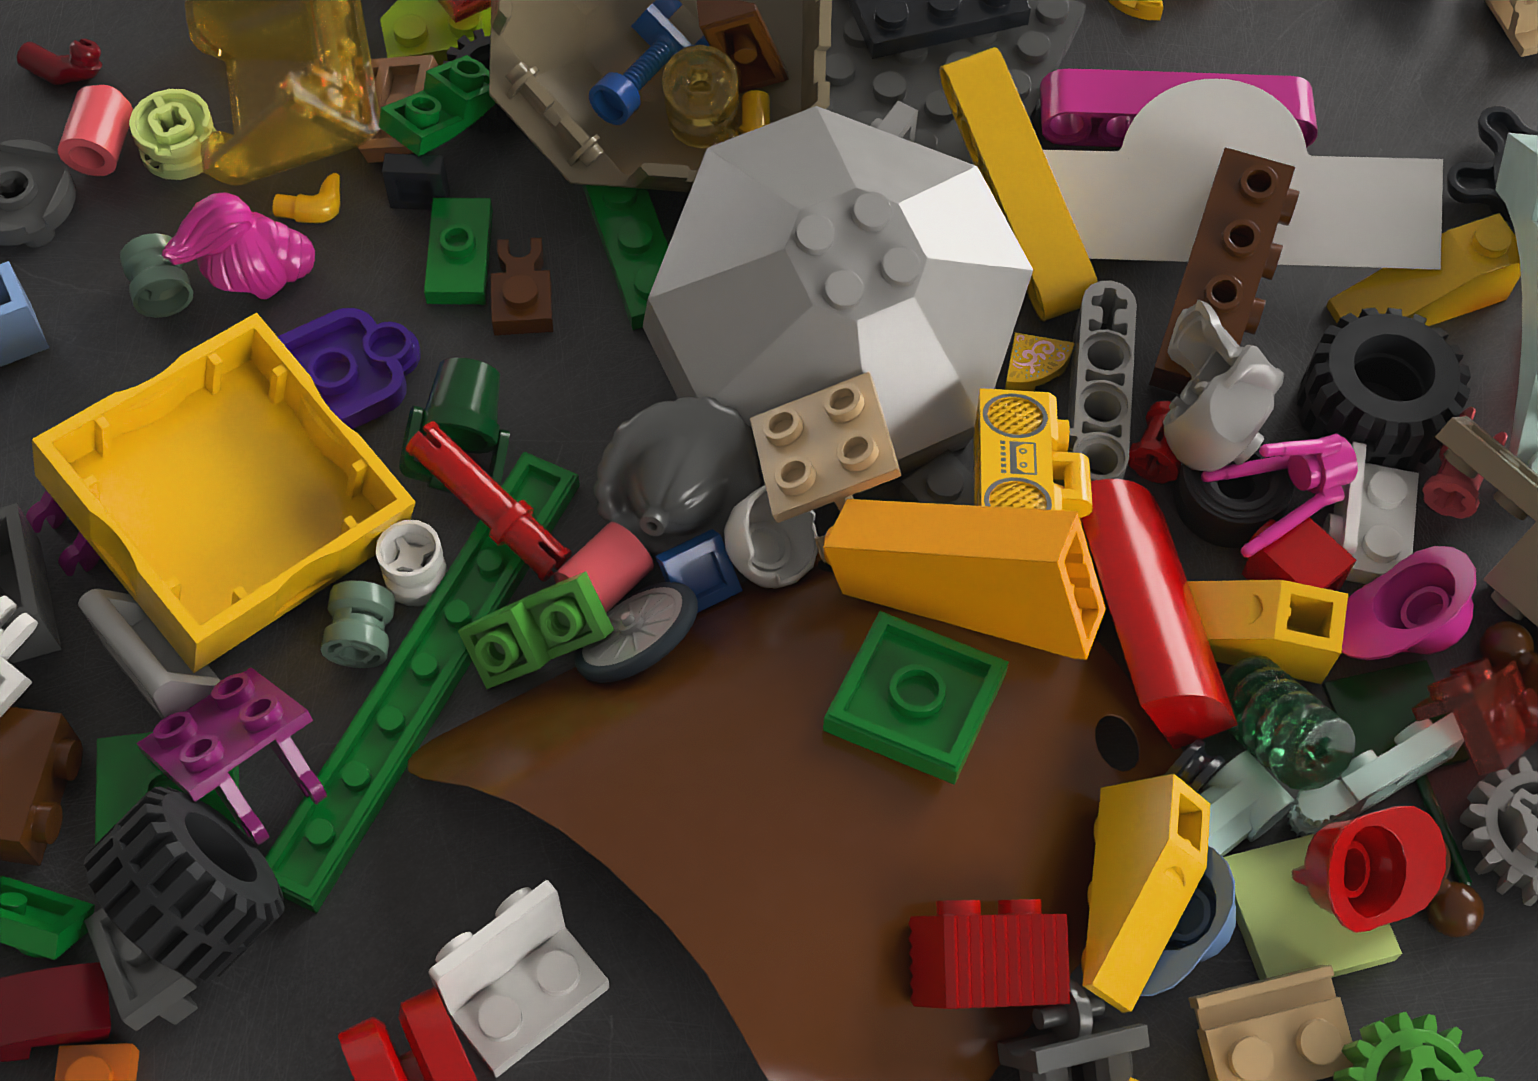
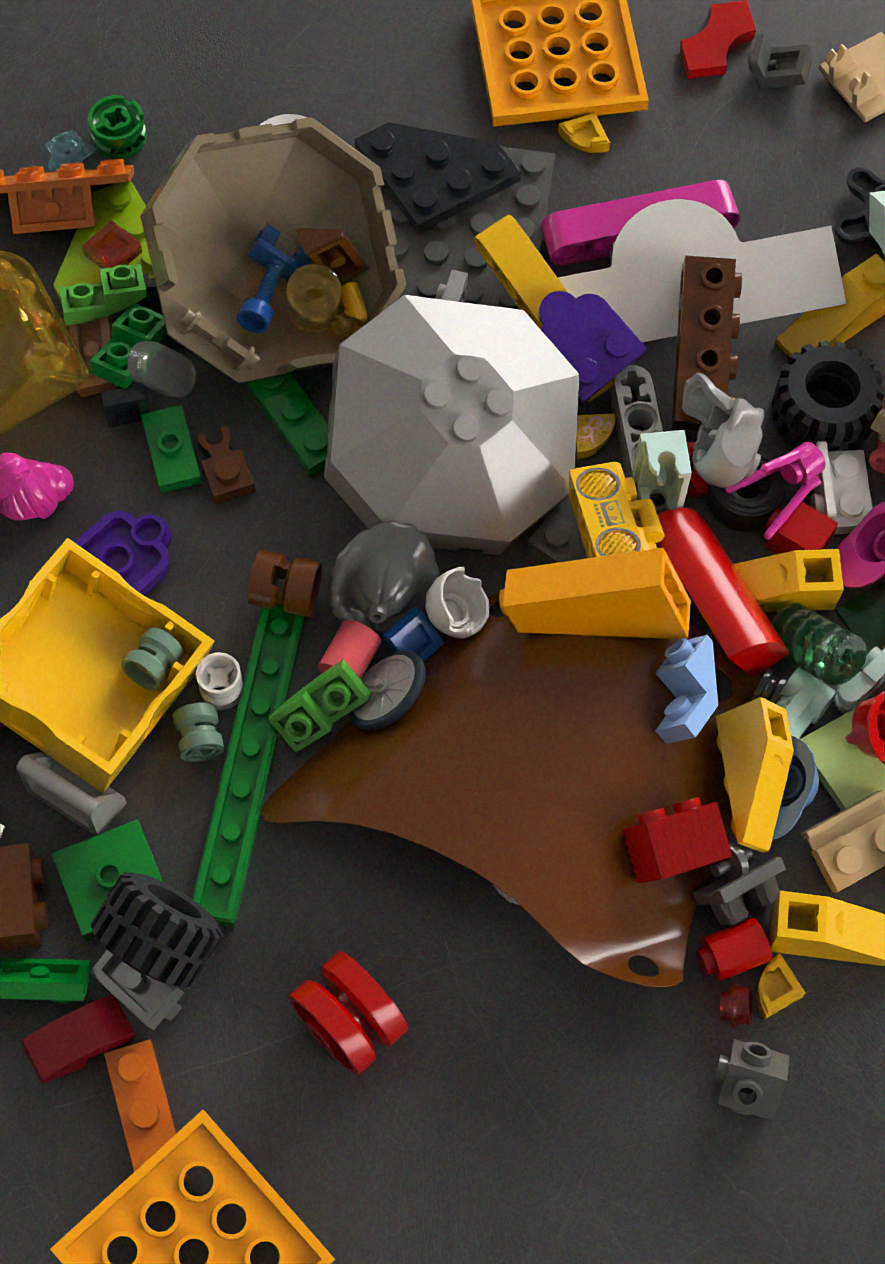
camera: 15 degrees left, 5 degrees up
(224, 730) = (143, 826): magenta plate -> none
(309, 208) = (56, 442): yellow animal -> none
(323, 505) = (152, 658): none -> sand green wheel
(453, 33) = (116, 291): none -> bright green slope
(466, 410) = (217, 571): dark green piece -> none
(475, 143) = (161, 369): none -> clear tile
(506, 518) = (275, 635): red pin -> none
(516, 978) = (385, 930): white bracket -> none
(533, 447) = (300, 584): none -> reddish brown wheel
(824, 449) = (480, 539): tan plate -> none
(916, 697) = (588, 689): green tile -> none
(1062, 231) = (589, 338): none -> dark purple plate
(1077, 723) = (692, 680): none -> light blue slope
(1116, 413) = (663, 467): none -> light aqua hinge

